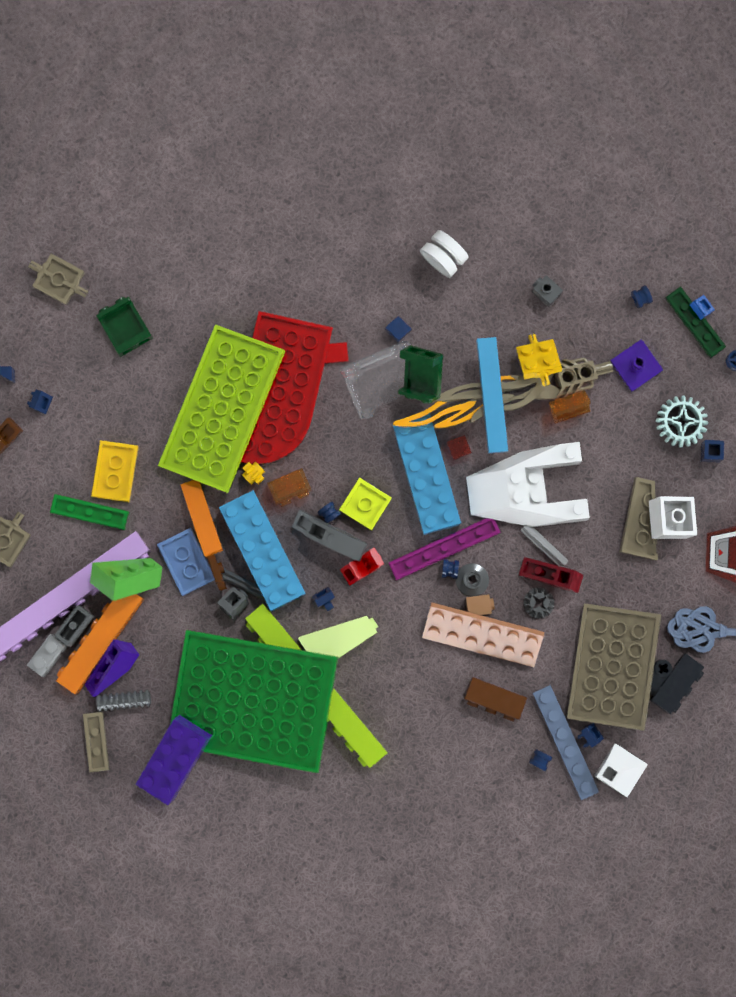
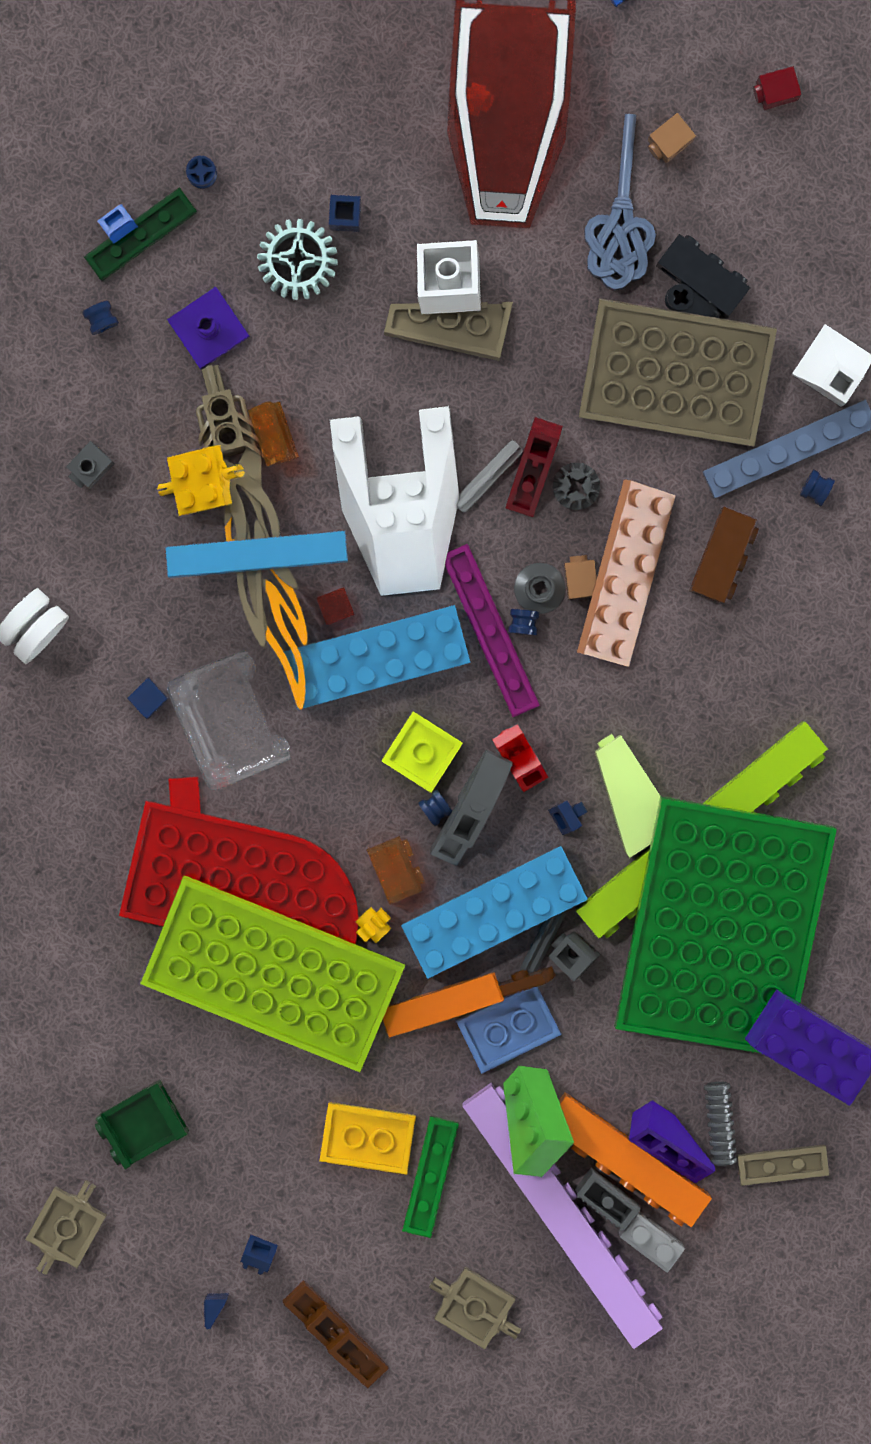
camera: 90 degrees left, 5 degrees up
(421, 374) = (225, 664): dark green panel -> none
(592, 735) = (781, 408): dark blue tile -> none

